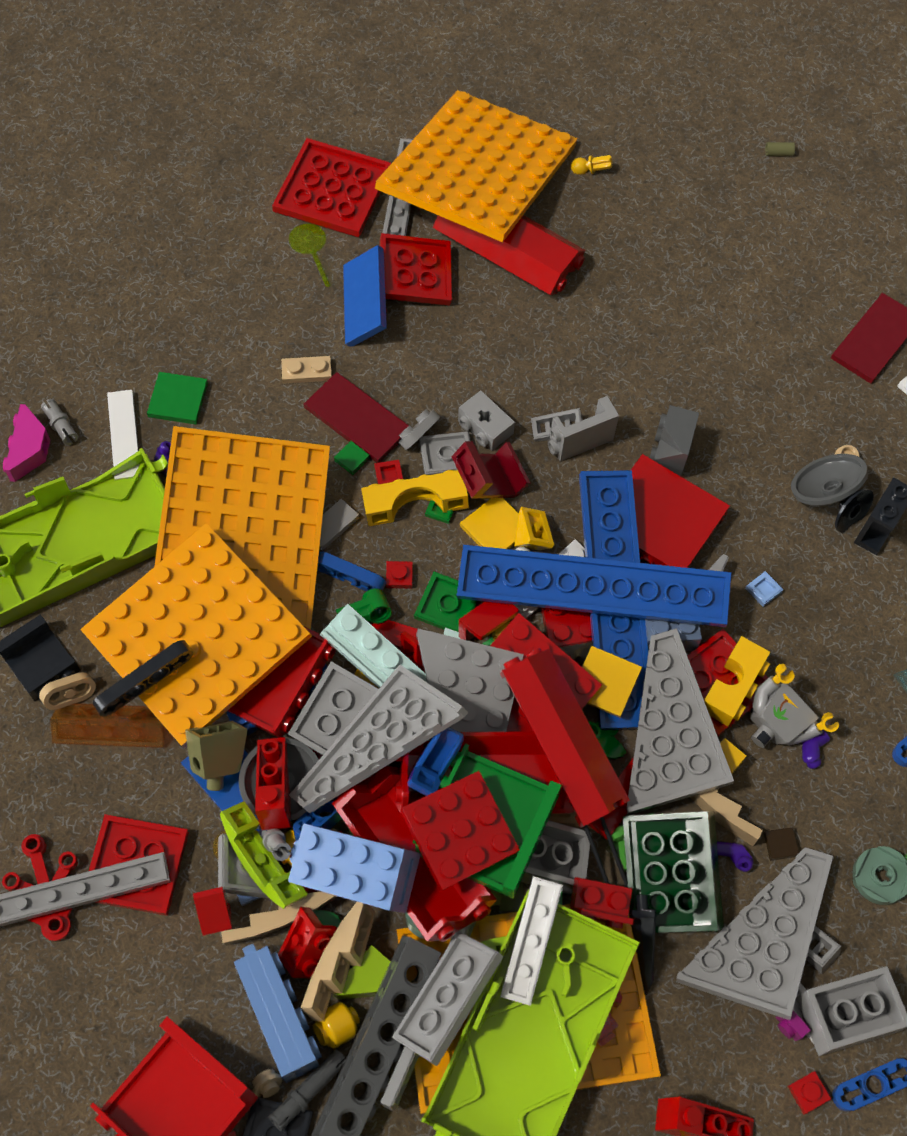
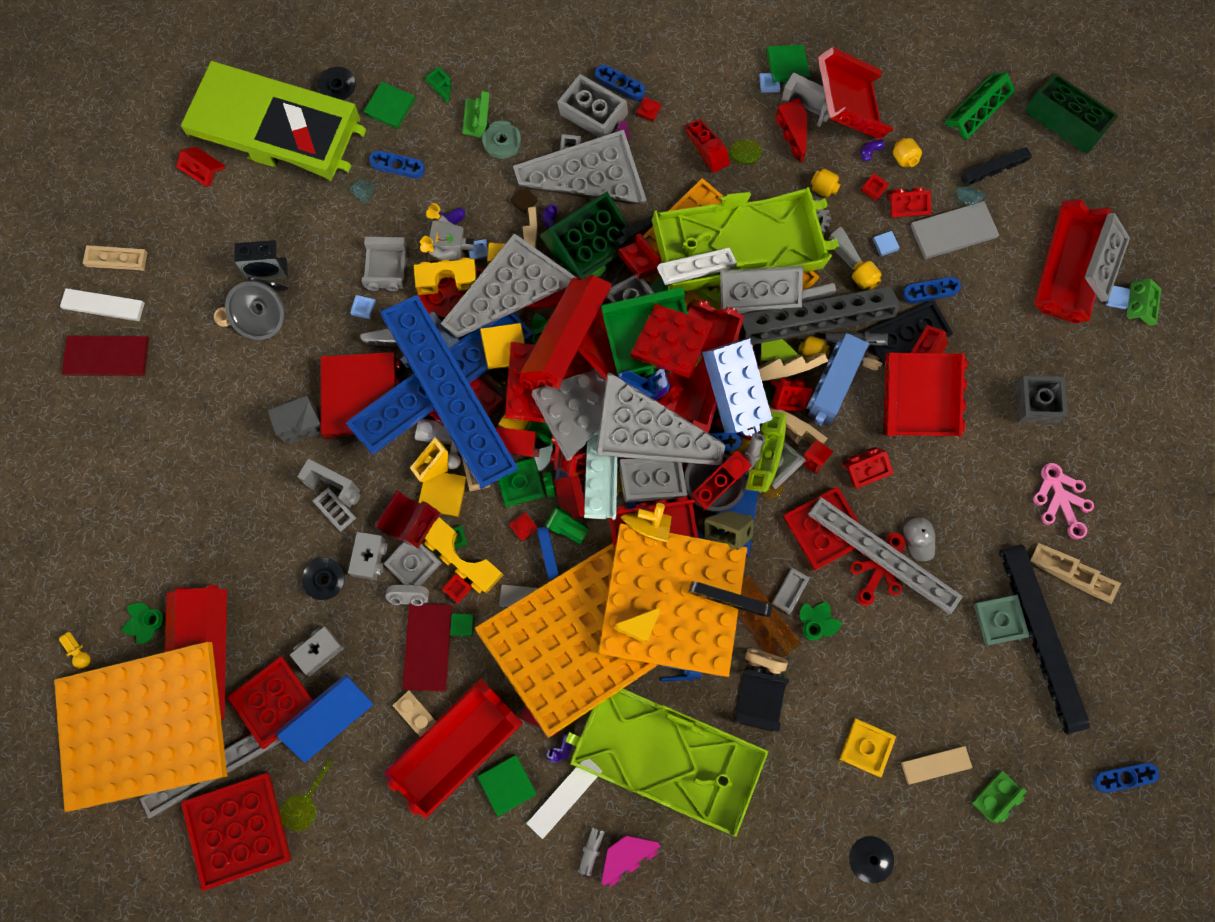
camera: 125 degrees left, 10 degrees up
(20, 957) = (920, 544): none -> light grey cap
(58, 781) = (820, 619): none -> green plate
(110, 776) = (790, 591): none -> light grey tile
(157, 969) = (868, 467): none -> red bracket
(195, 567) = (639, 626): none -> yellow slope
(247, 372) = (452, 749): none -> red panel
(285, 664) = (651, 524): none -> yellow shield
(417, 620) = (548, 485): none -> green tile
(431, 328) = (327, 646): none -> light grey brick
(494, 365) = (313, 577): none -> black dish
(575, 221) = (140, 623): none -> green plate
(750, 749) = (480, 251): none -> light blue tile
(799, 640) = (385, 263): none -> light grey panel

